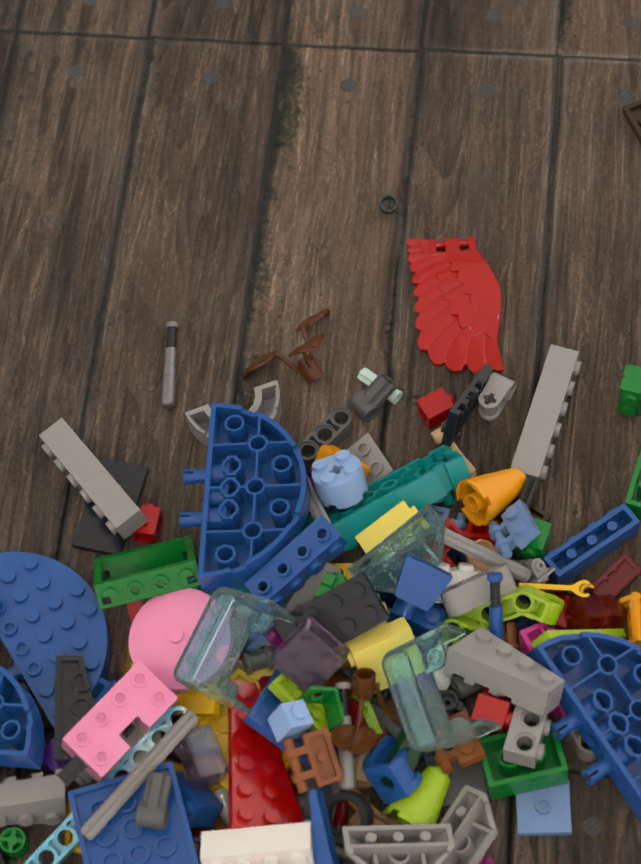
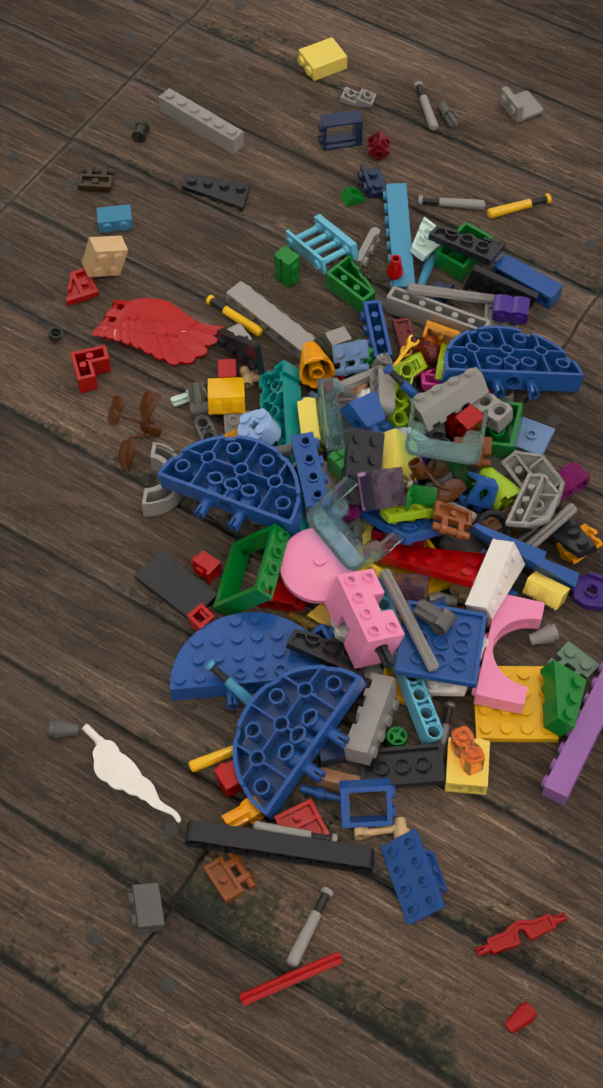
camera: 70 degrees left, 5 degrees down
(72, 555) = (199, 617): none -> red brick
(92, 477) = (152, 581): light grey brick -> none
(168, 391) = (91, 508): flat silver piece -> none
(290, 720) = (421, 516): light blue brick -> none
(355, 257) = (88, 364): none -> red brick
(393, 423) = (226, 395): none -> yellow brick
(474, 192) = (80, 287): none -> red wing
(520, 190) = (104, 256): none -> tan brick
(529, 381) = (247, 324): none -> yellow piece
(558, 504) = (338, 336): none -> light grey brick
(597, 171) = (114, 218): none -> dark azure brick

